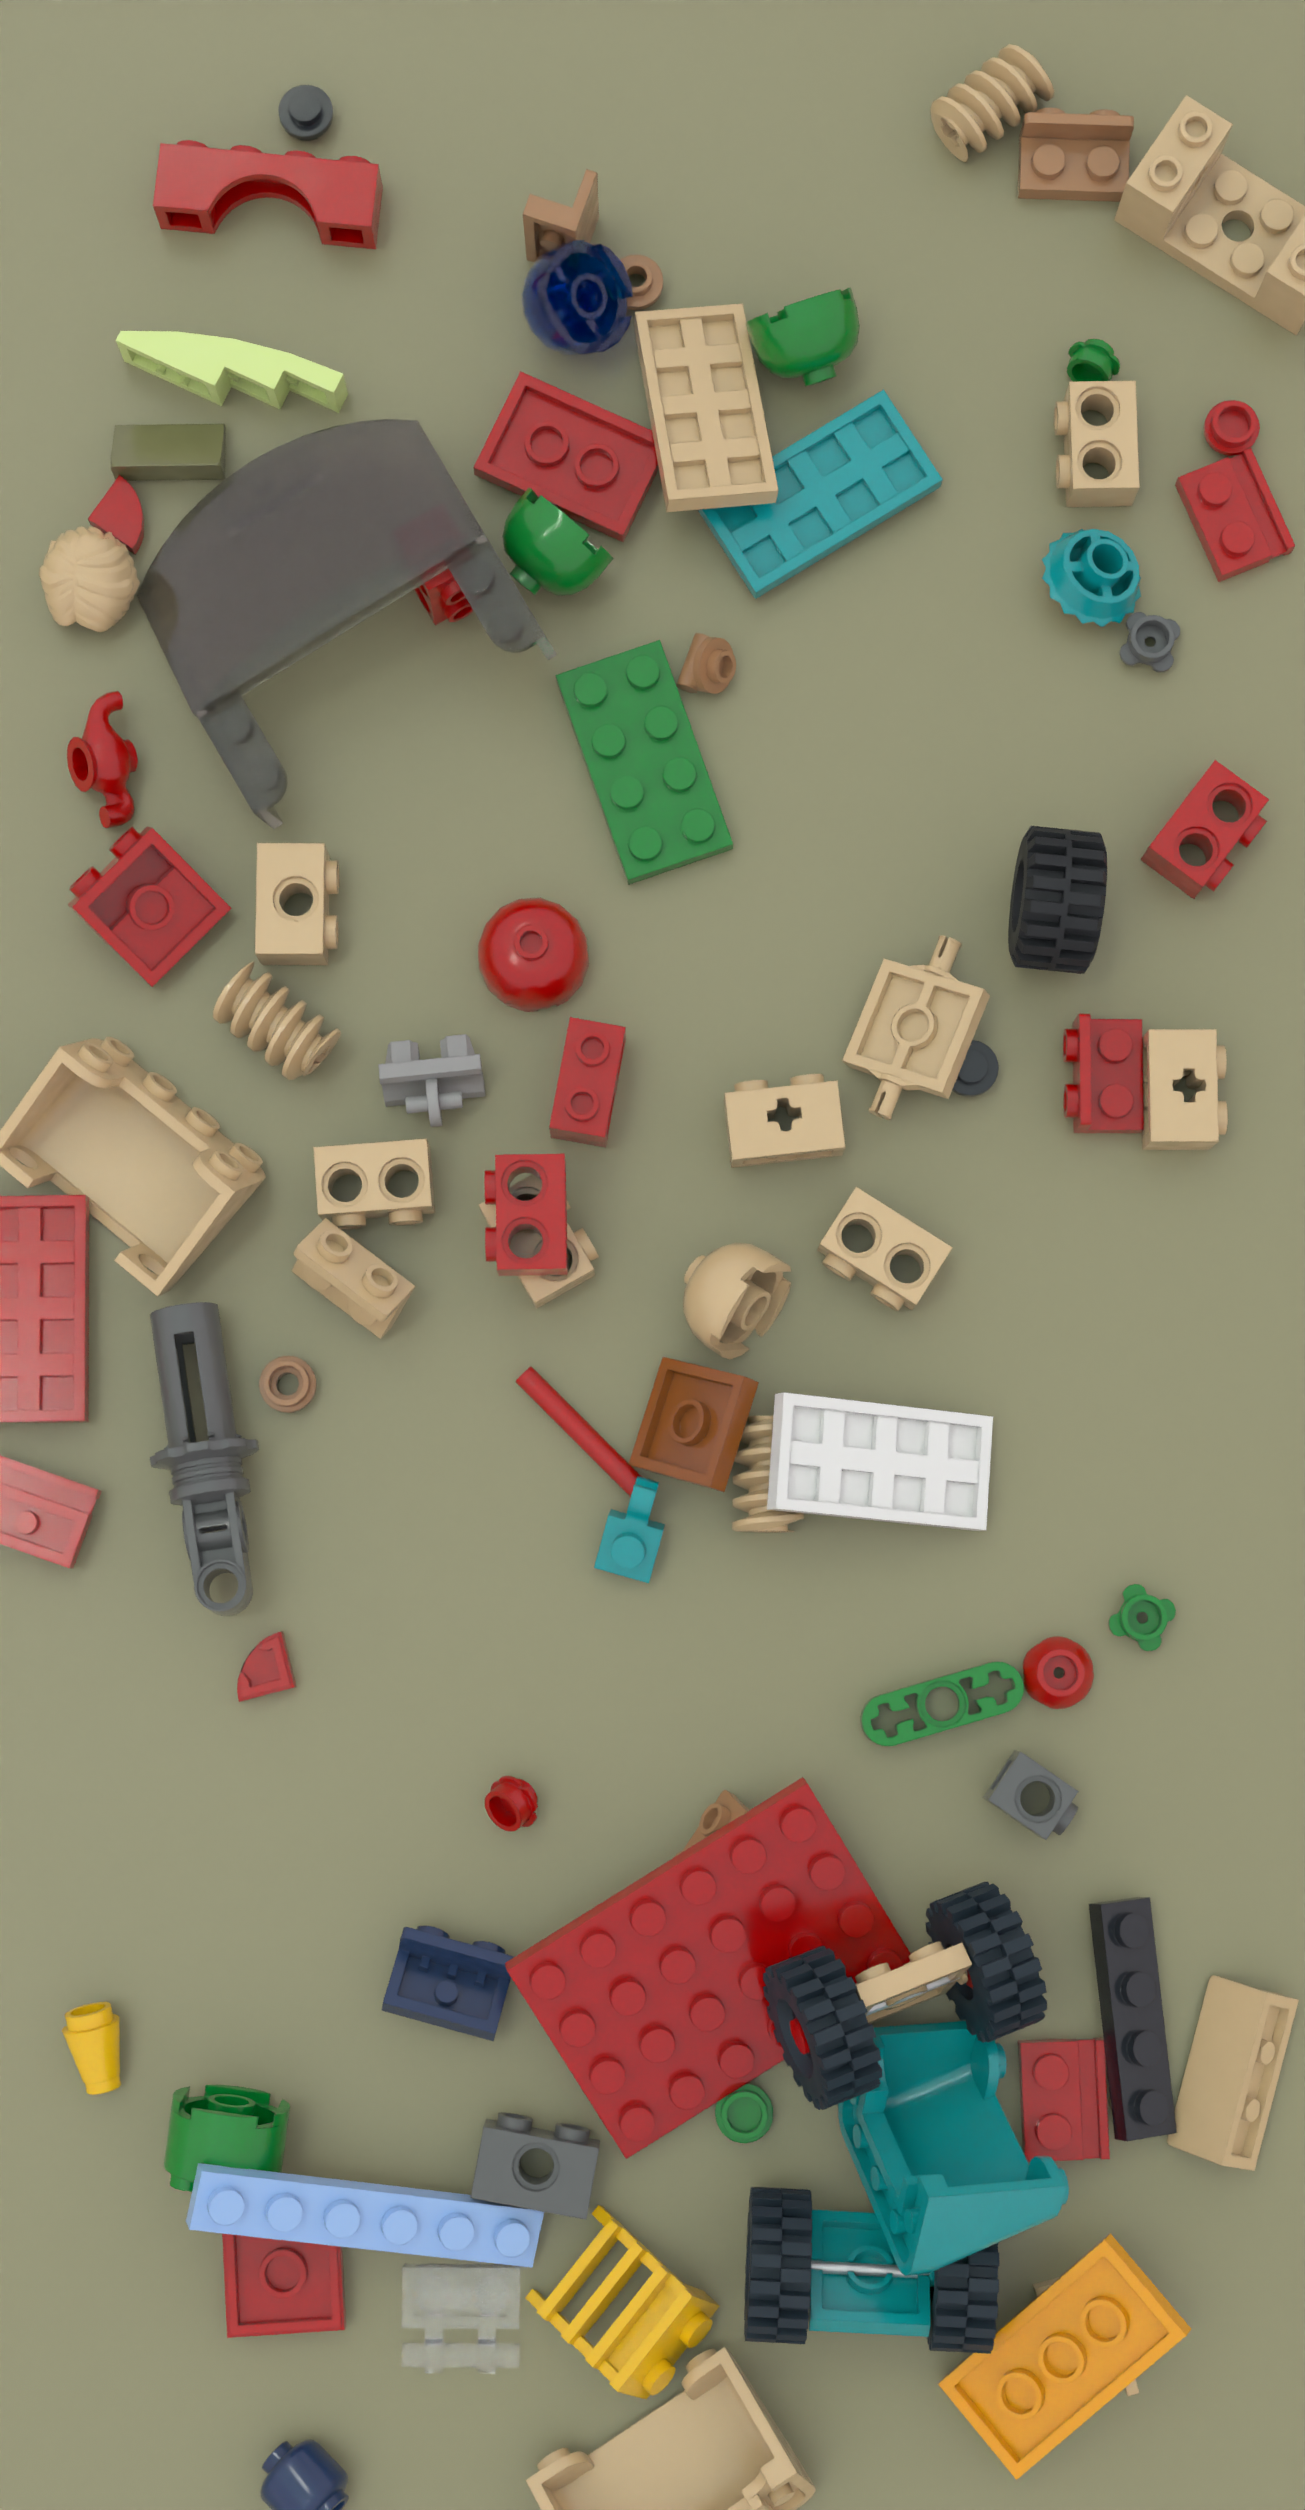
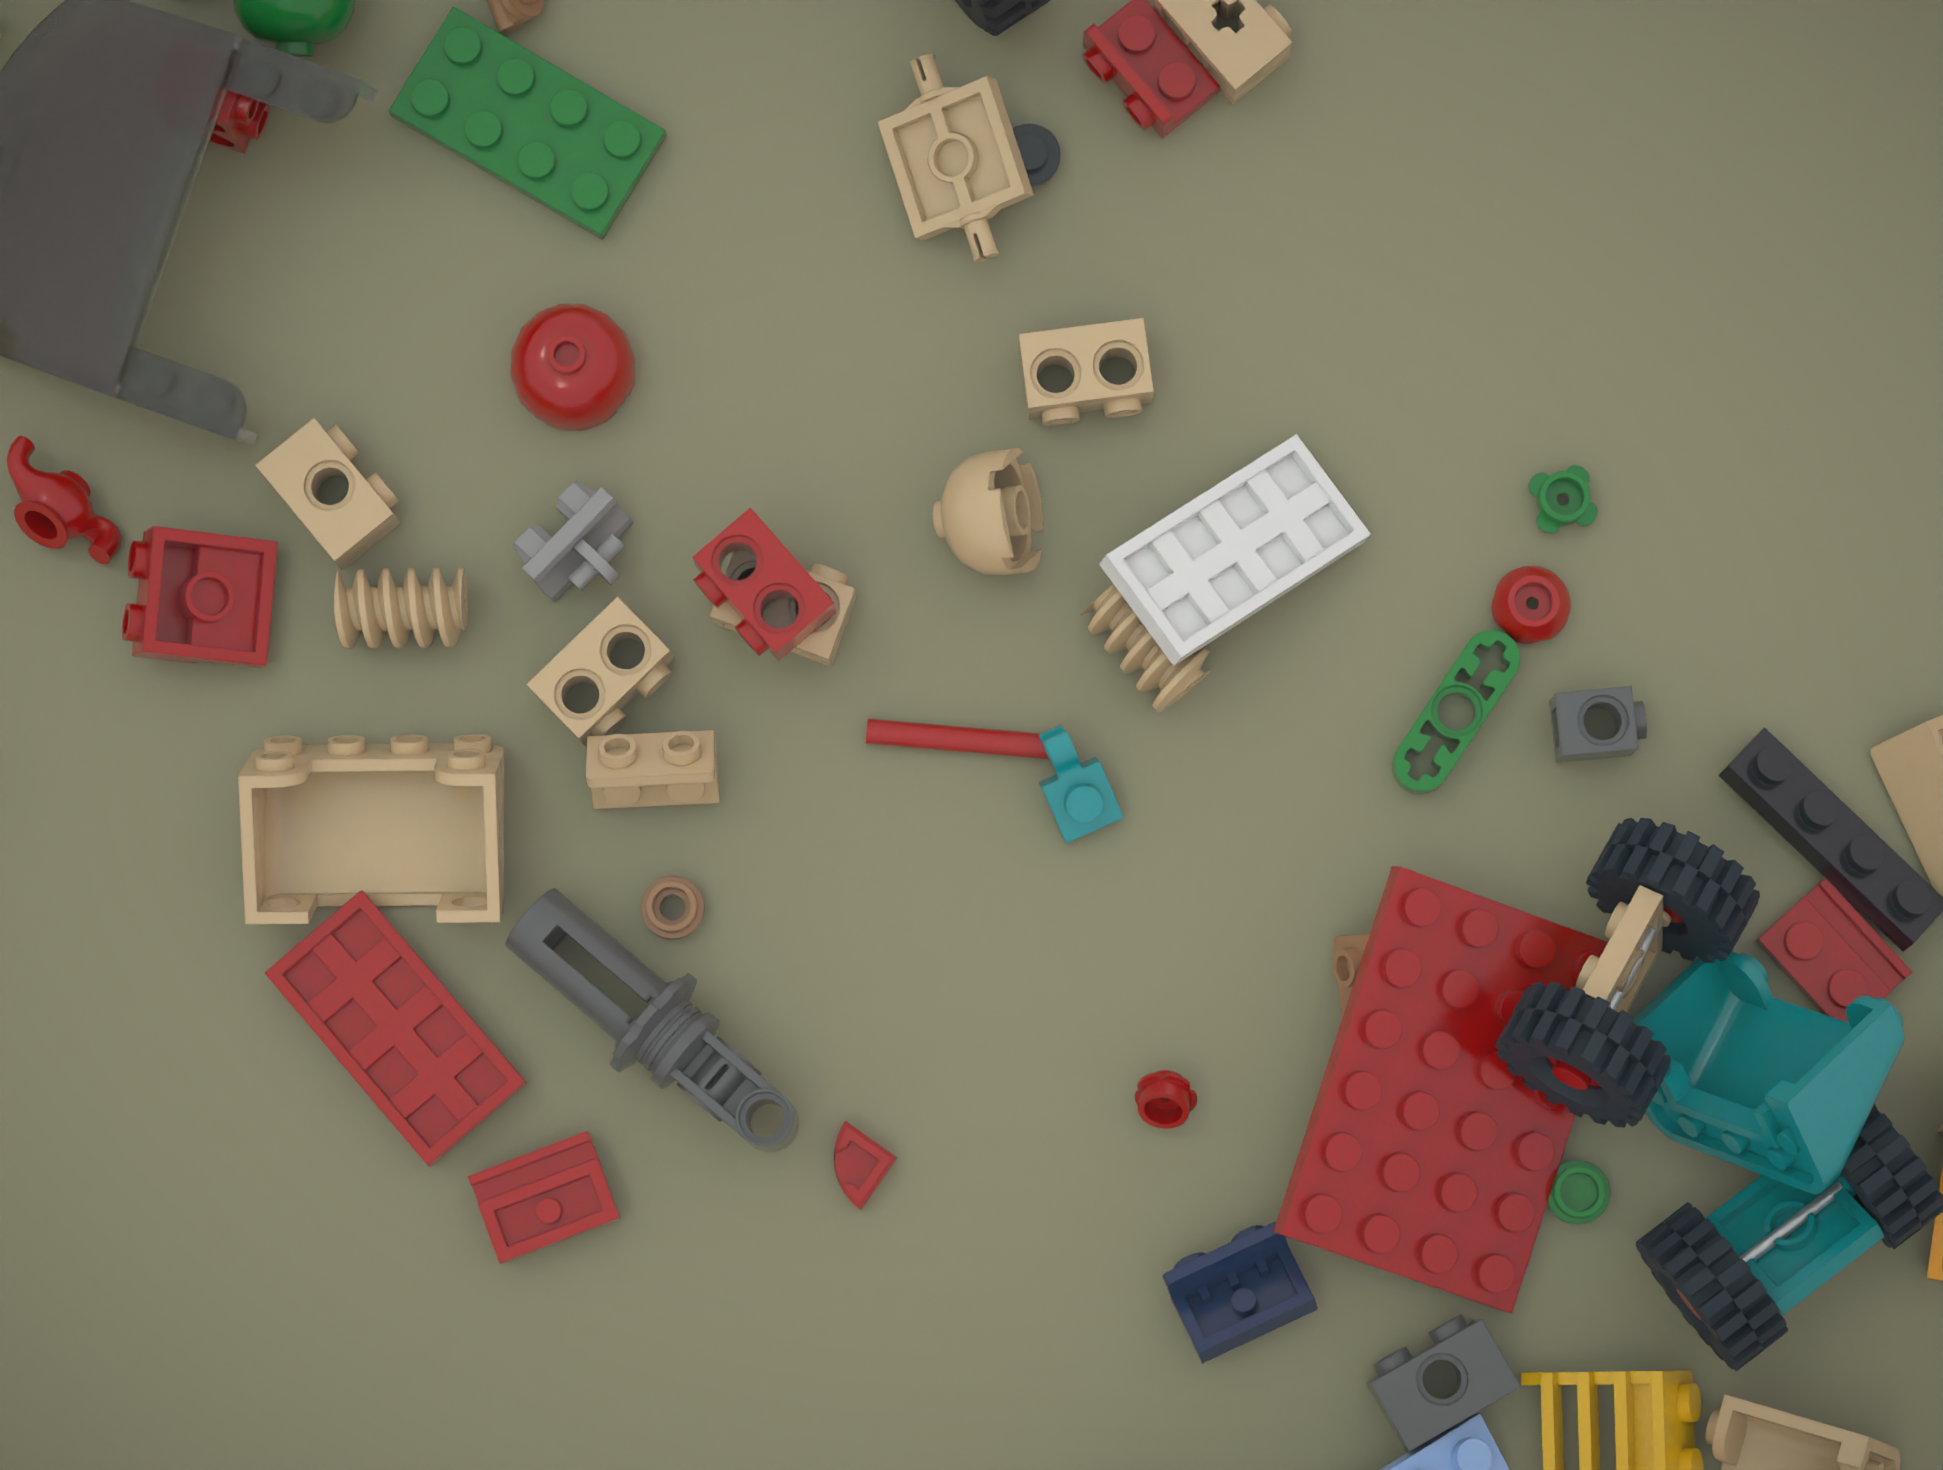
camera: 35 degrees left, 0 degrees up
(587, 1082) = (713, 435): red brick -> none
(693, 1423) = (1049, 649): dark orange plate -> none
(811, 1136) = (943, 322): tan brick -> none

